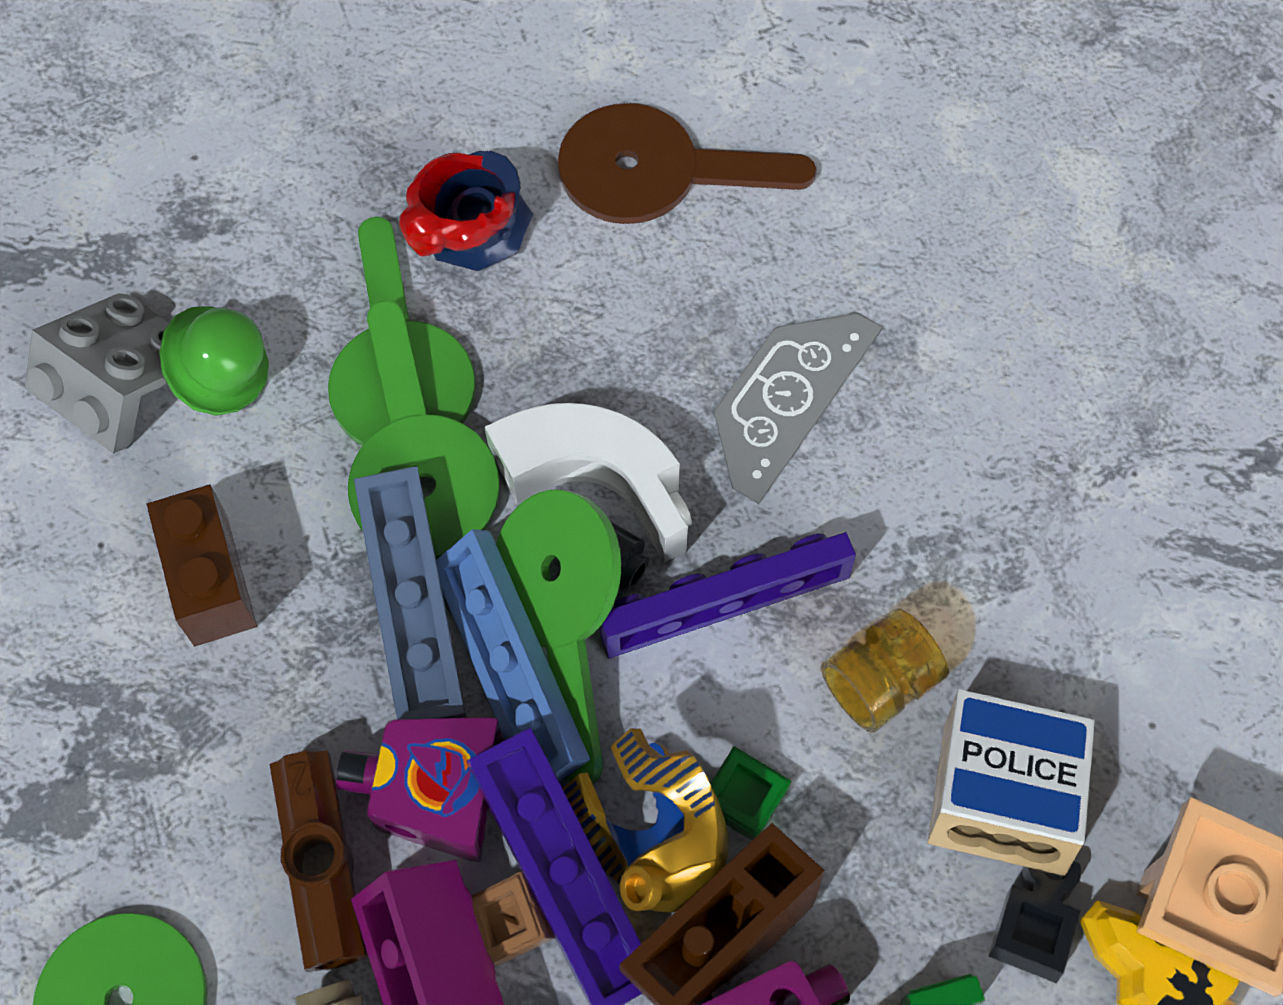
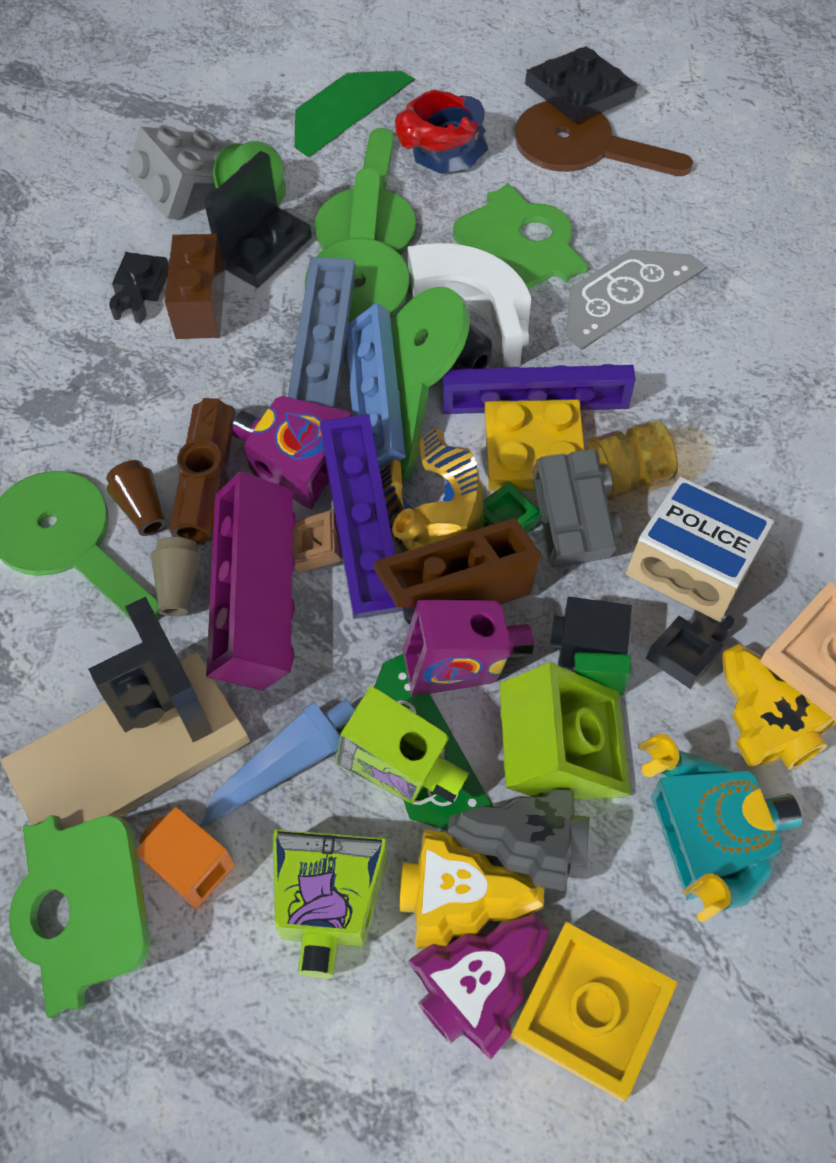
camera: 20 degrees right, 5 degrees down
(108, 568) = (137, 280): none -> black plate
(237, 927) = (136, 494): none -> reddish brown cone
(254, 444) = (250, 226): none -> black bracket
(300, 191) = (342, 106): none -> green sticker
(589, 365) = (497, 231): none -> bright green piece
(627, 77) = (580, 84): none -> black plate
(746, 676) = (525, 432): none -> yellow plate
(839, 771) = (576, 507): none -> dark grey brick
(913, 947) = (590, 628): none -> black brick

